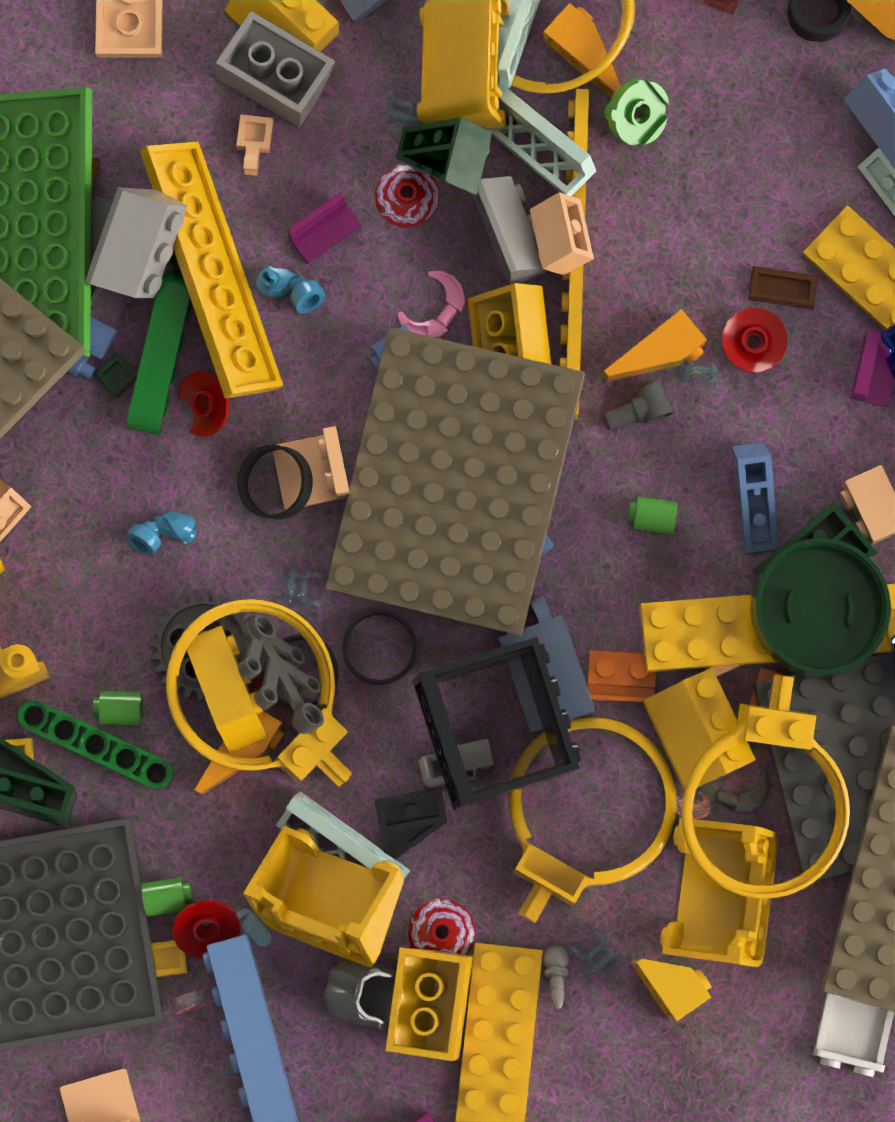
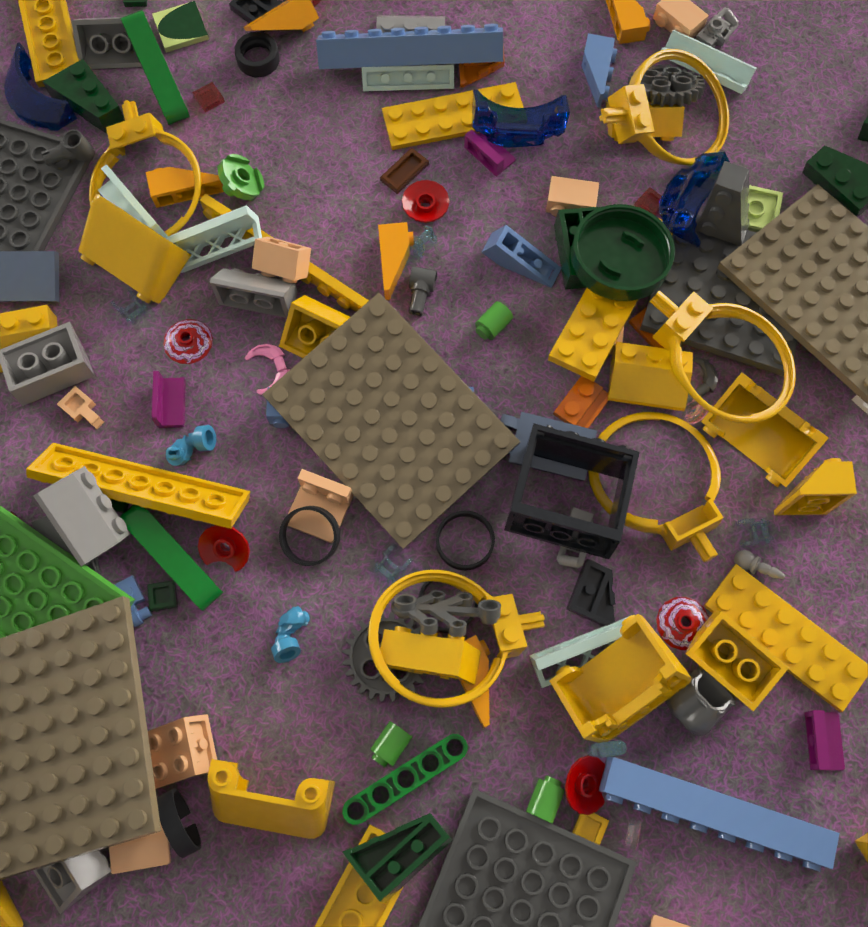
camera: 55 degrees left, 10 degrees down
(448, 150) = (178, 288): dark green wedge -> none

